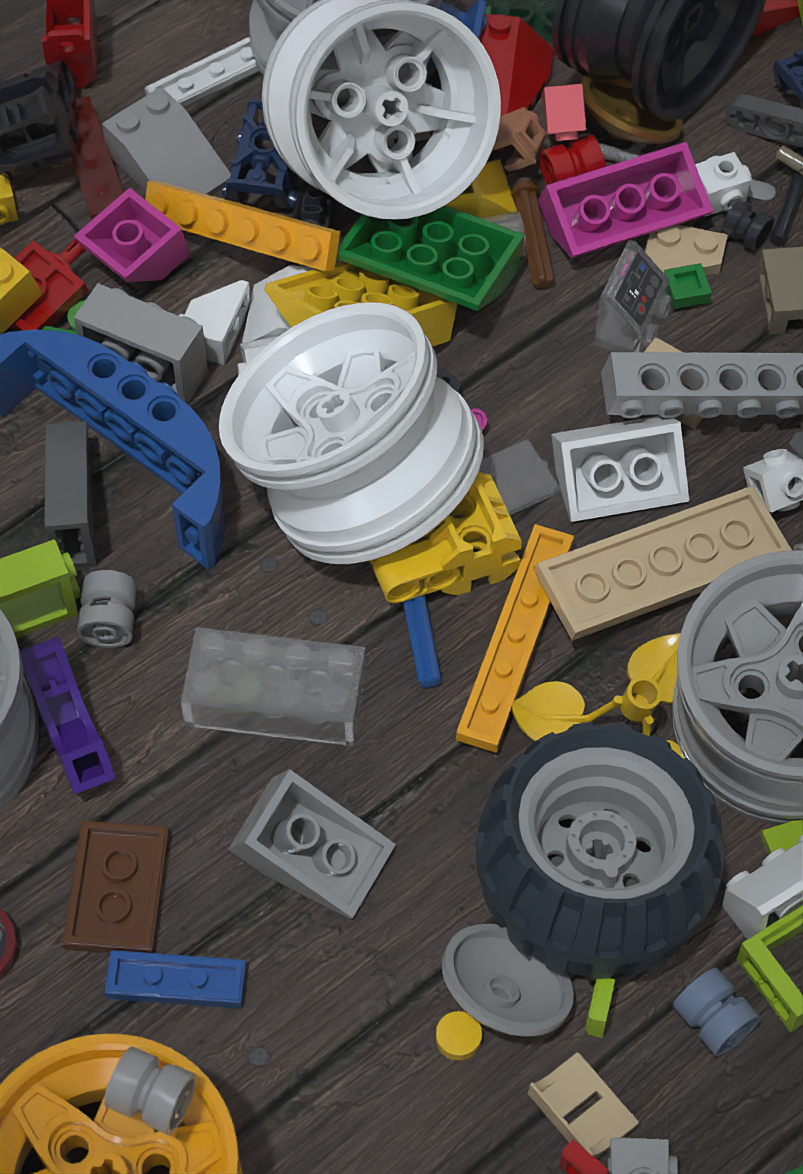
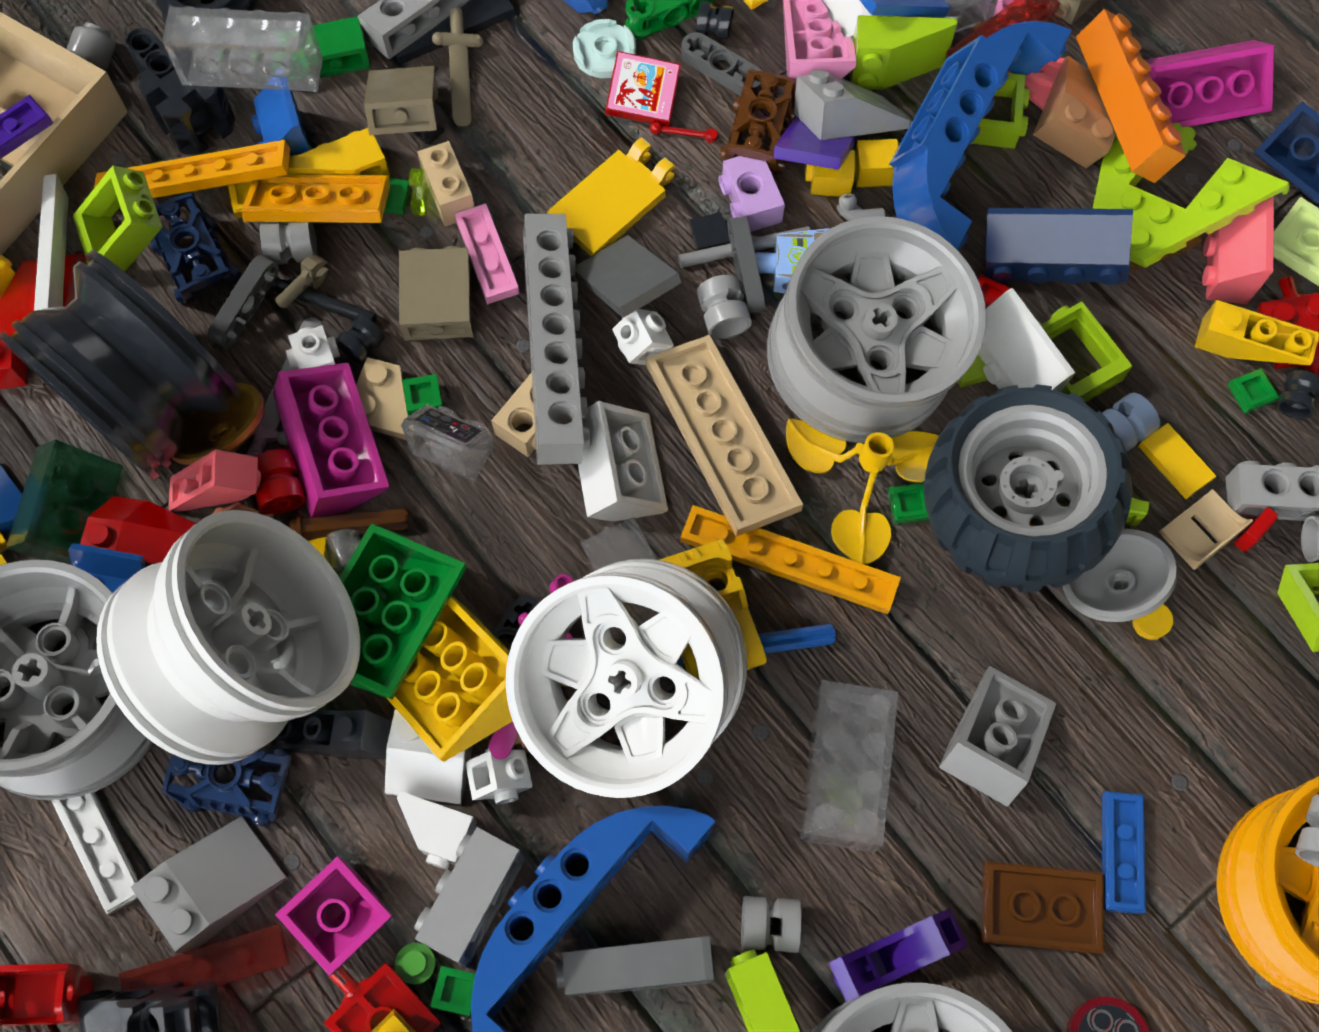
camera: 90 degrees left, 10 degrees up
(246, 226) = (332, 798): light orange plate -> none
(677, 1086) = (1177, 461): none -> yellow tile

